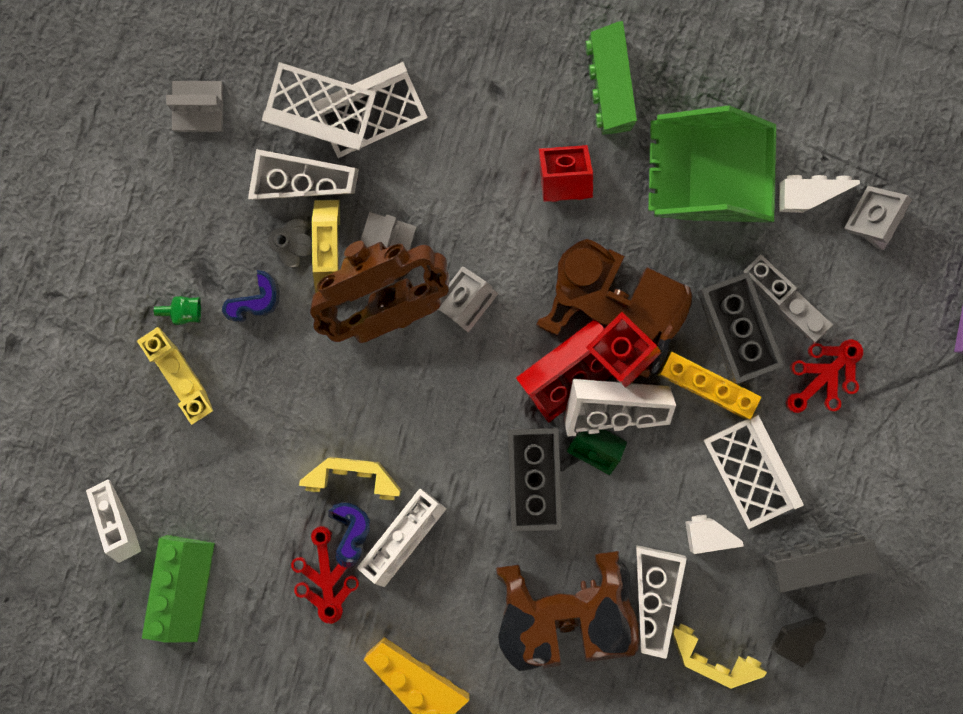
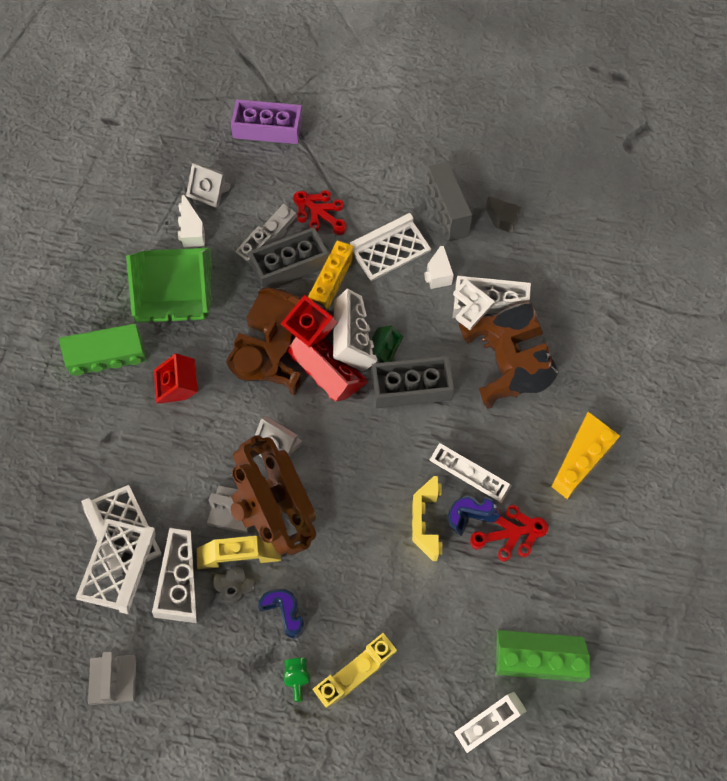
camera: 90 degrees left, 25 degrees down
(634, 579) = (476, 304): none -> white plate
(742, 673) = (534, 247): light yellow slope -> none

